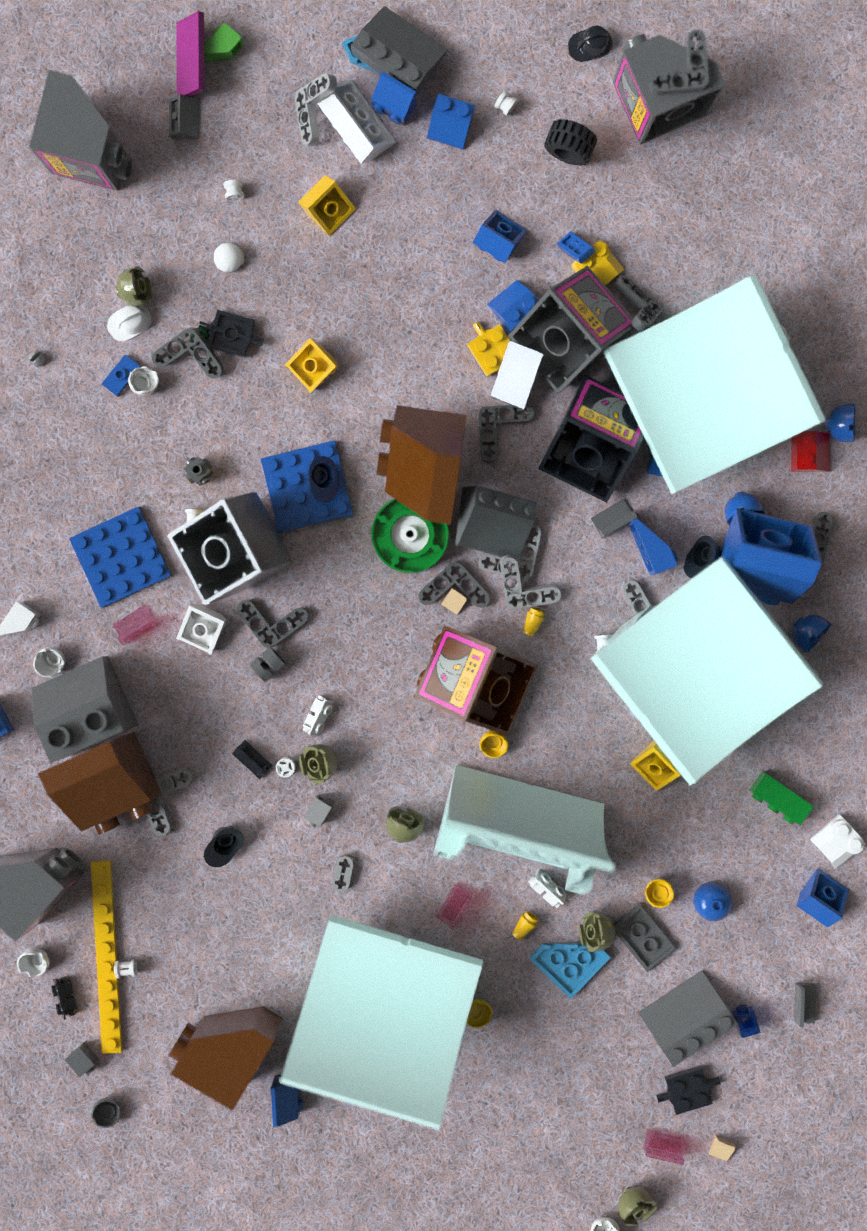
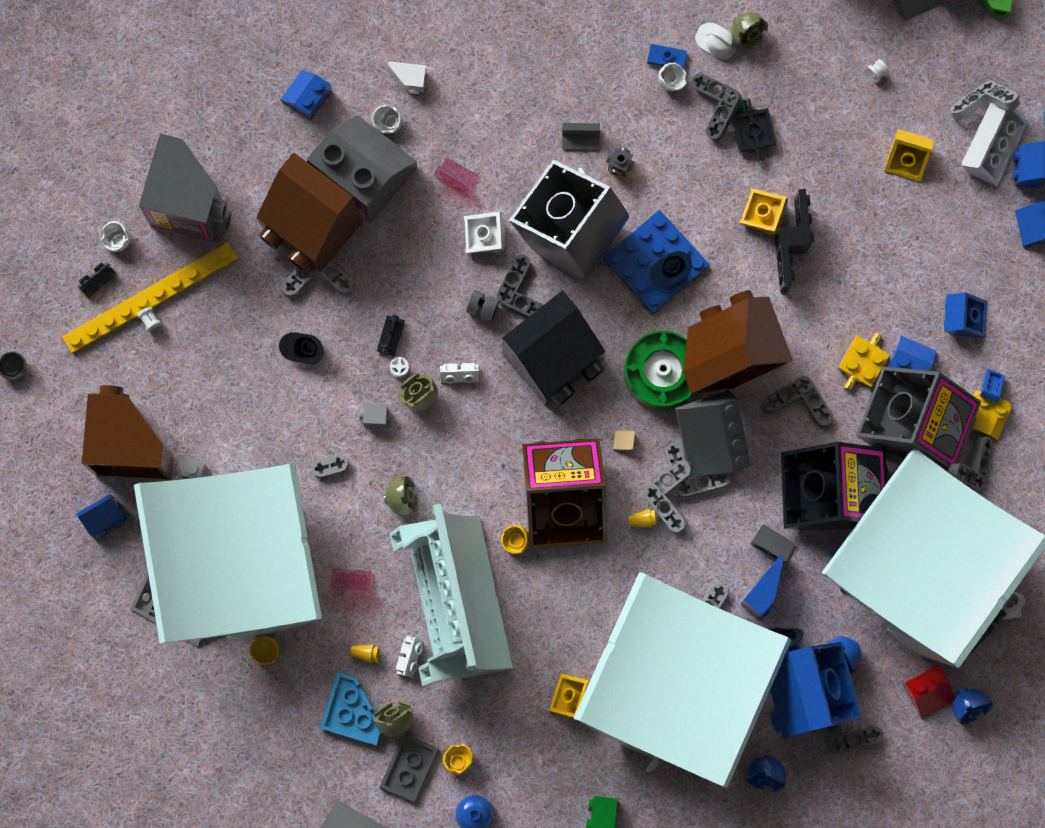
camera: 60 degrees right, 10 degrees down
(82, 1060) = (48, 322): dark grey brick -> none
(120, 557) = (509, 134): blue plate -> none
(156, 493) = (580, 136): none -> dark grey panel
(228, 257) = (818, 95): white hair -> none
(284, 997) = (192, 468): none -> light grey brick
(344, 623) = (554, 350): none -> black slope
(352, 352) = (793, 240): none -> black bracket
(446, 574) = (640, 428): dark grey beam -> none
(517, 374) = (853, 391): tile -> none

